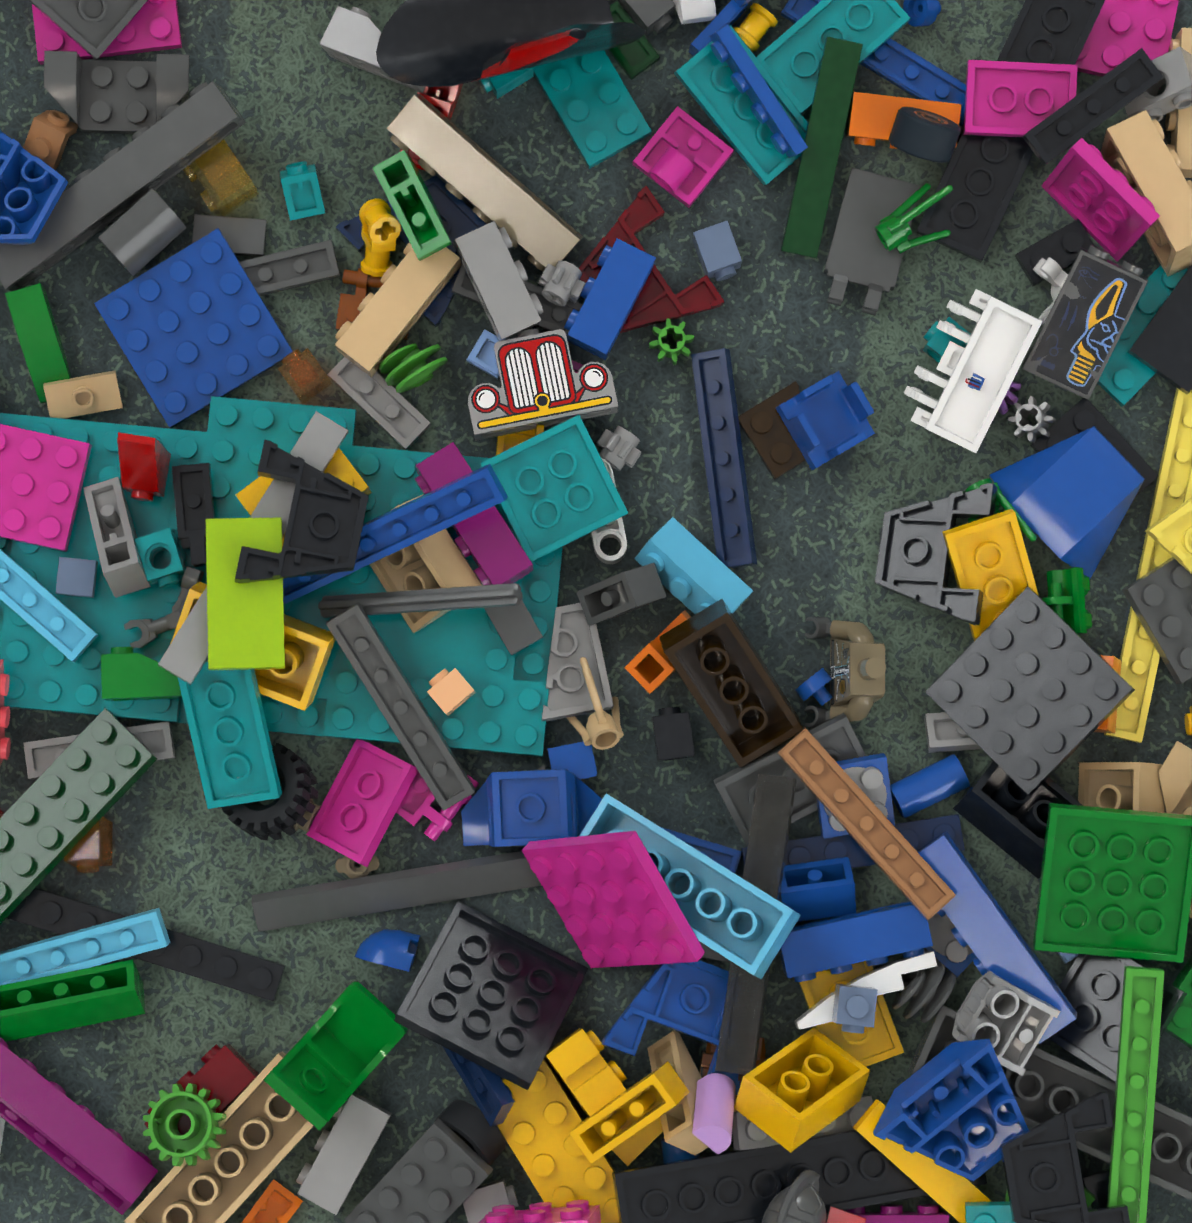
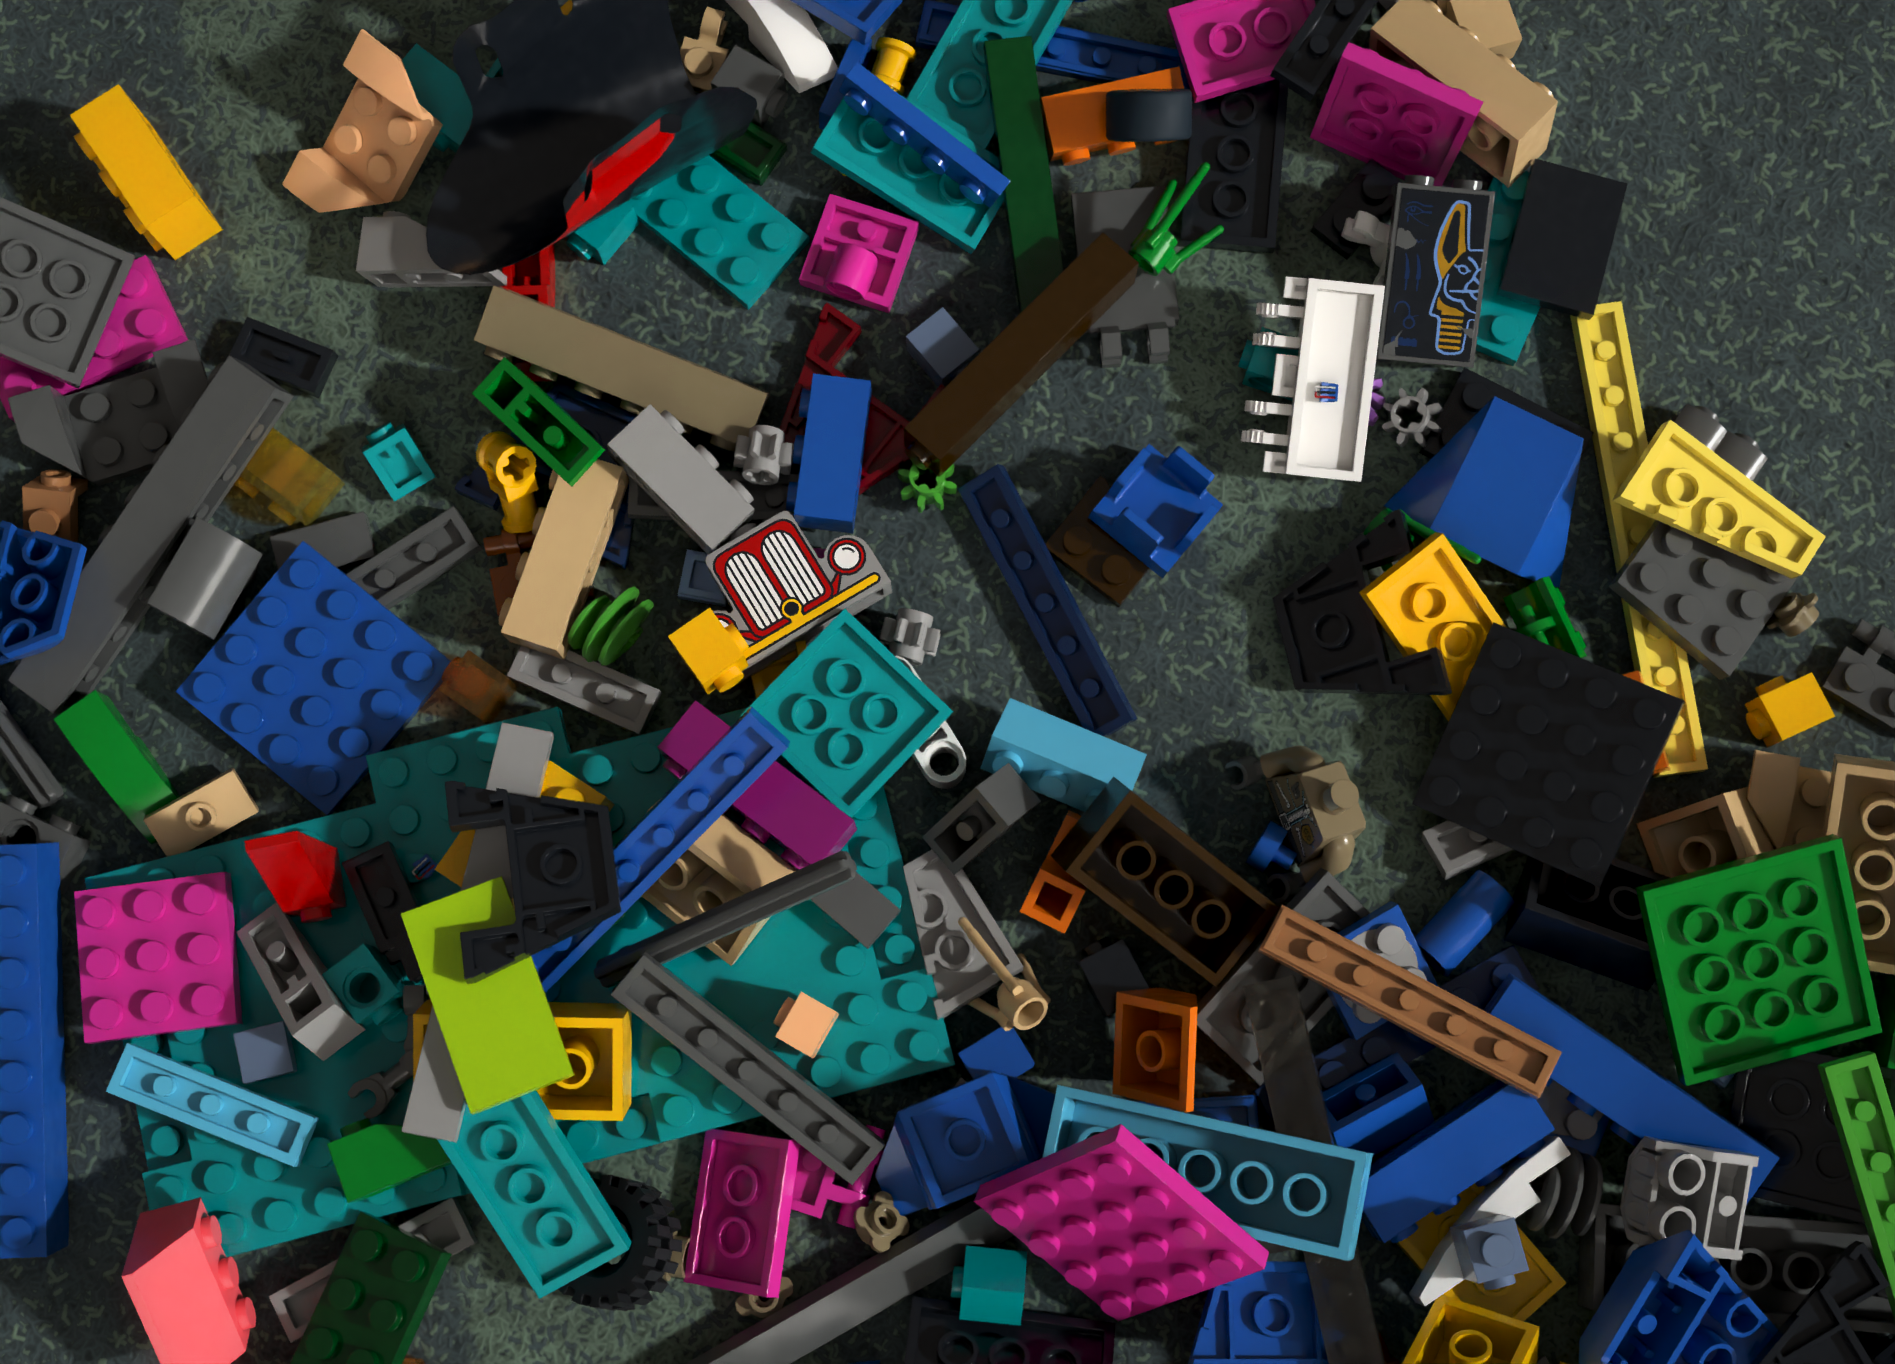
camera: 15 degrees left, 5 degrees down
(227, 489) = (425, 867): none -> blue piece
(246, 86) = (284, 357): none -> black plate
(445, 846) = (870, 1228): none -> dark tan plate
(476, 412) = (711, 651): none -> yellow brick
(513, 911) = (991, 1285): none -> teal brick
(682, 792) = (1156, 1047): none -> orange slope
(768, 276) = (1019, 355): none -> dark brown brick

